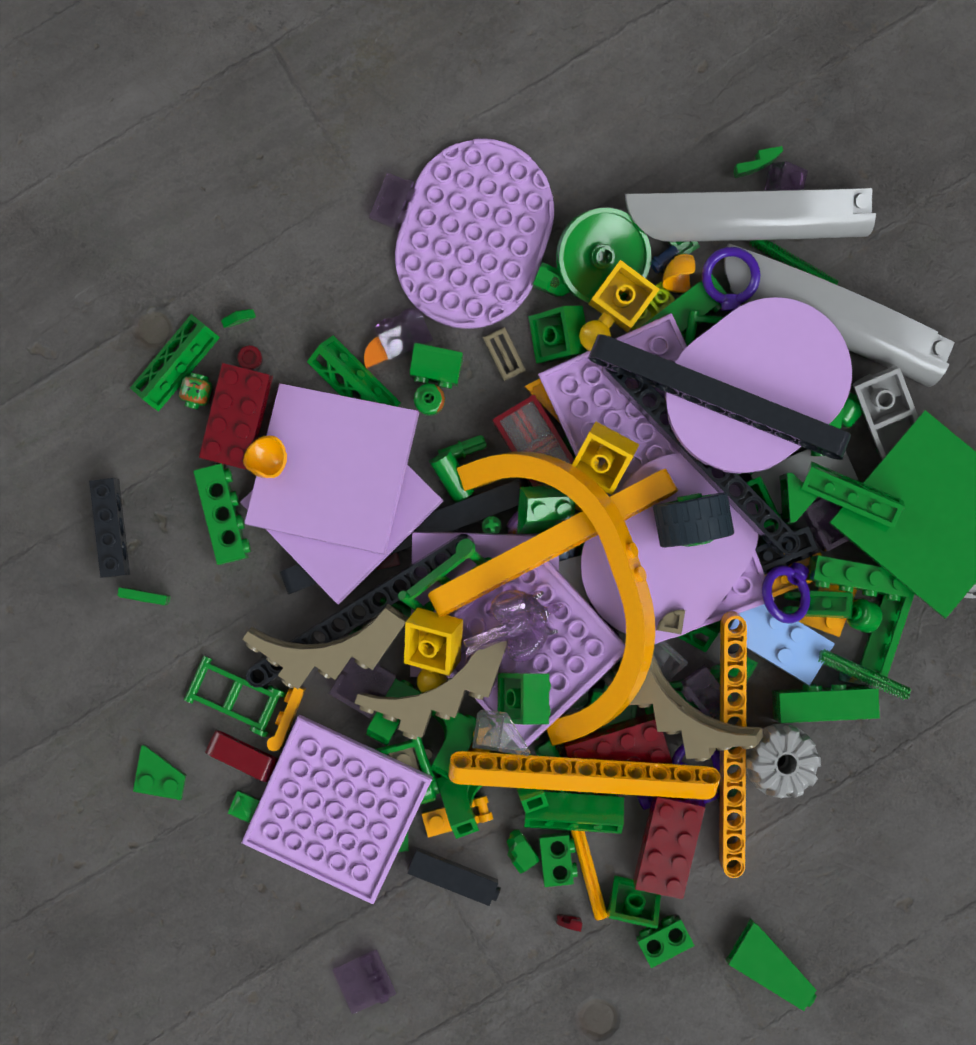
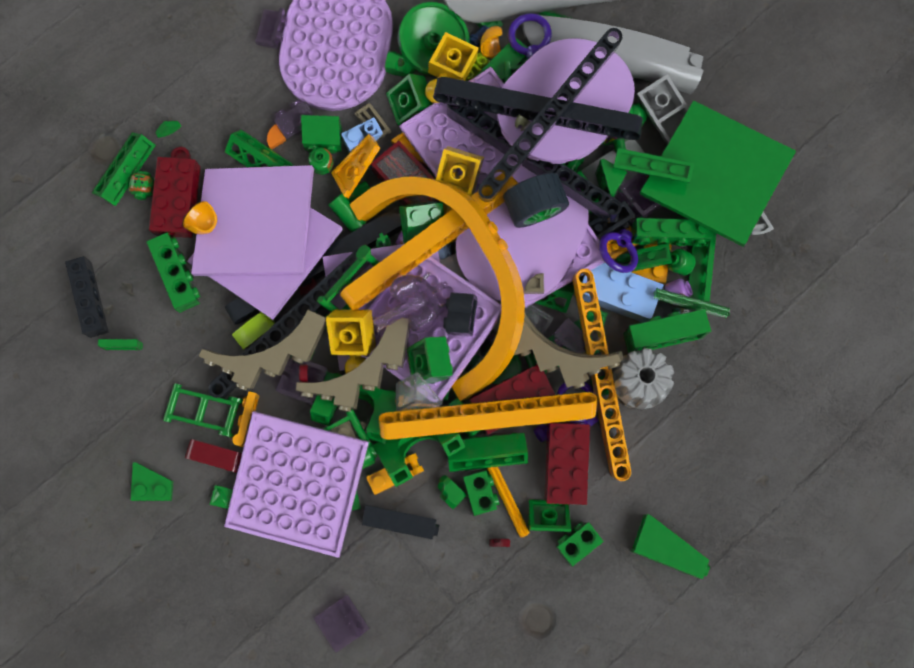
camera: 10 degrees left, 10 degrees down
(309, 607) = (253, 330): none -> lime slope
(366, 682) = (303, 373): none -> dark red tile
(472, 415) = (355, 164): none -> light orange wing
(488, 375) = (355, 135): none -> light blue slope
(572, 648) = (460, 314): none -> black brick
(696, 412) = (522, 121): none -> olive hinge
(744, 413) = (556, 108): none -> black beam
(853, 649) = (680, 287): none -> medium lavender head

